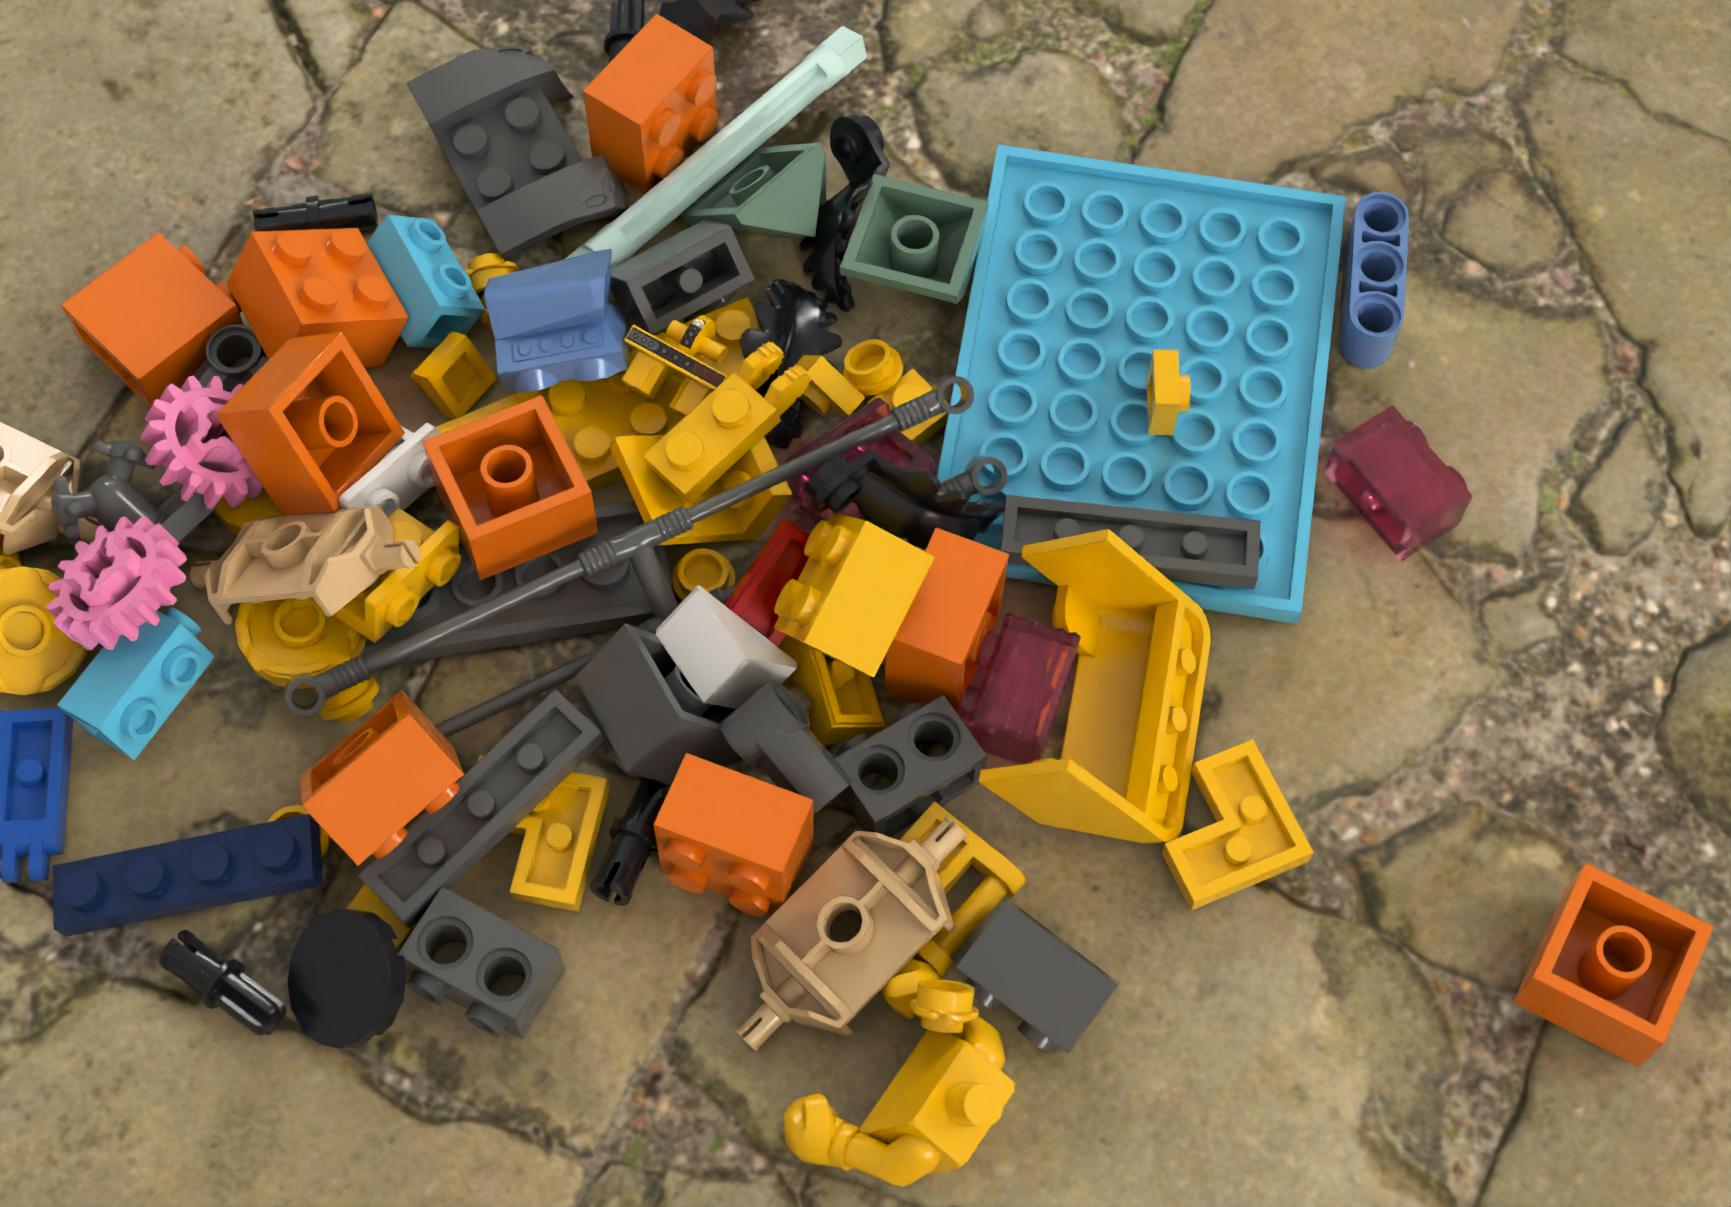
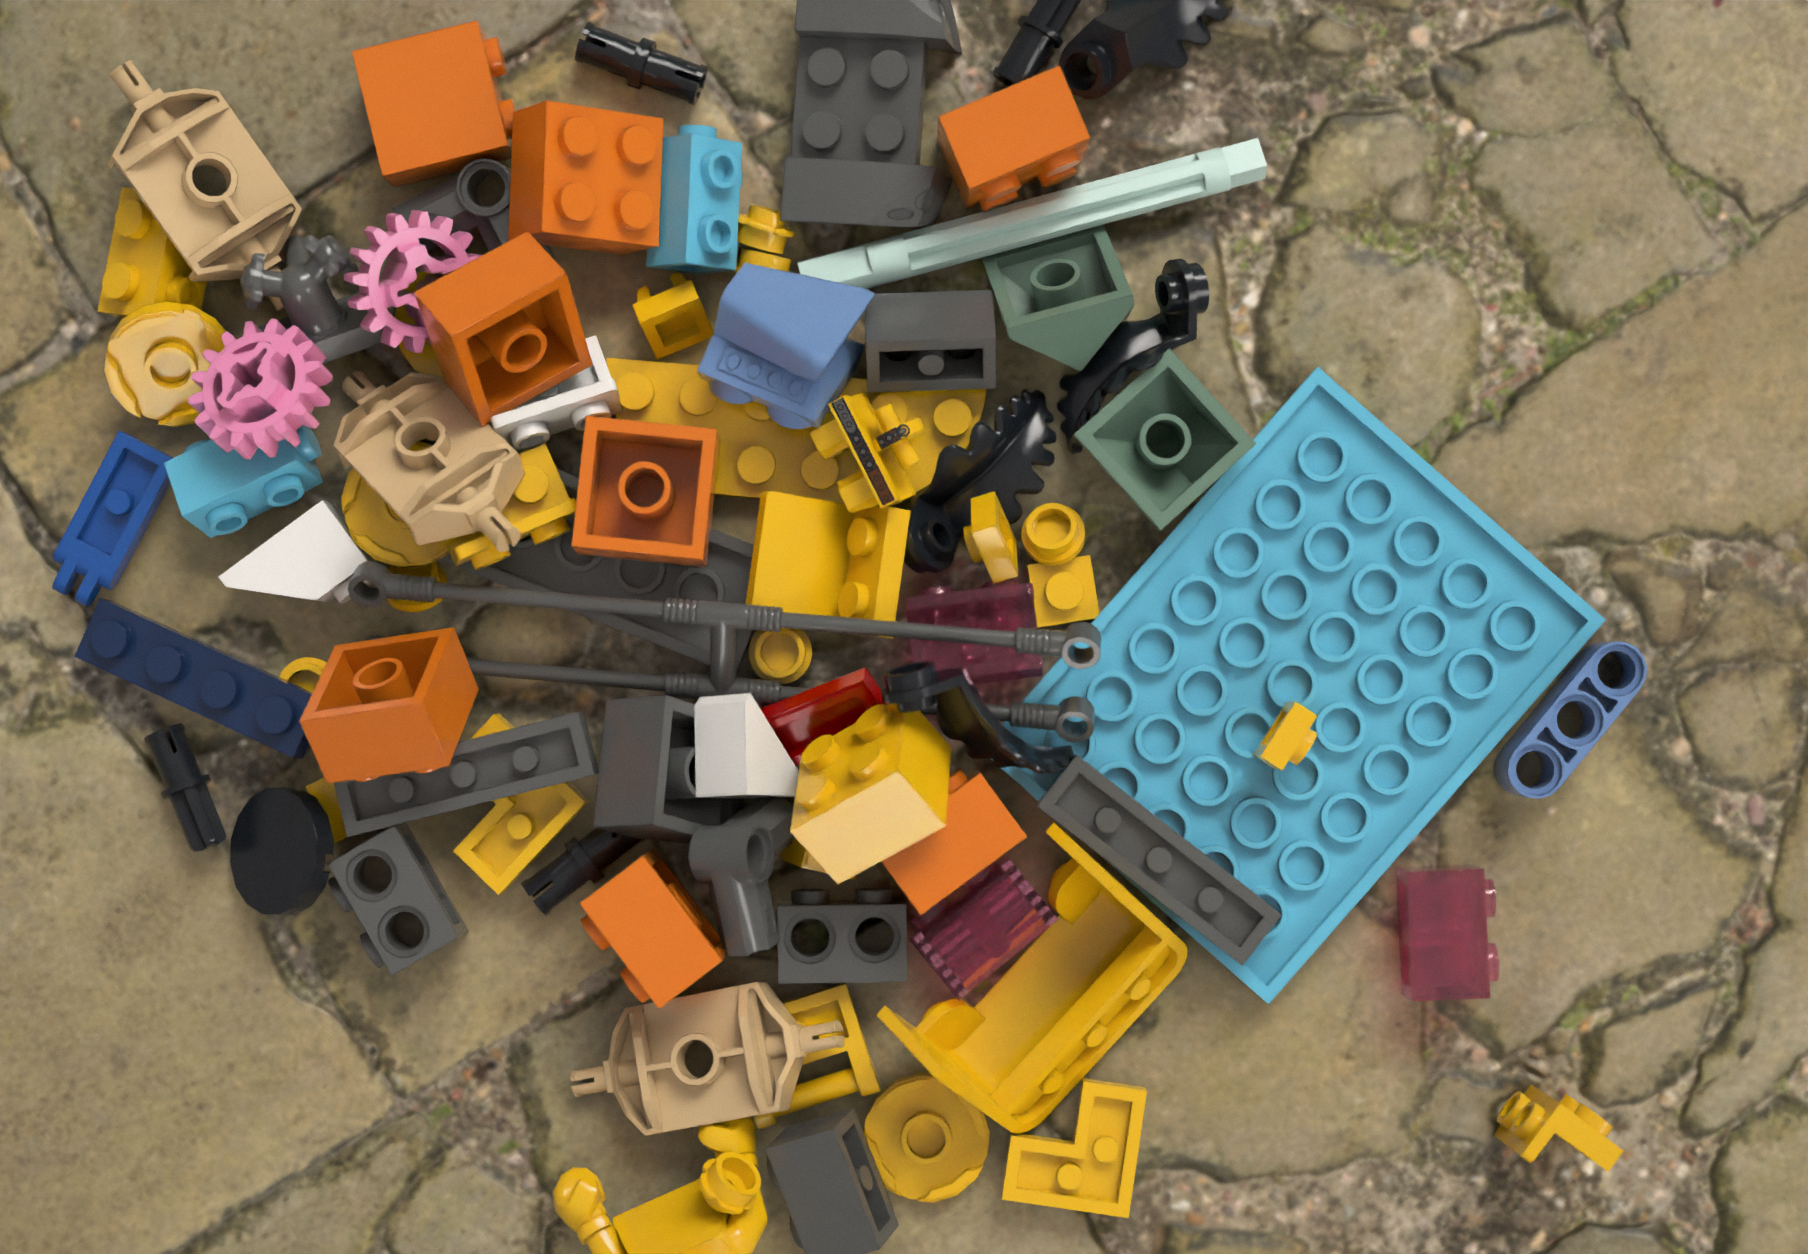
camera: 35 degrees right, 25 degrees up
(231, 730) = (304, 560): none -> white slope
(726, 424) = (865, 544): yellow hinge -> none
(1095, 898) = (926, 1138): none -> yellow tile
(1606, 560) = (1533, 1118): none -> yellow bracket

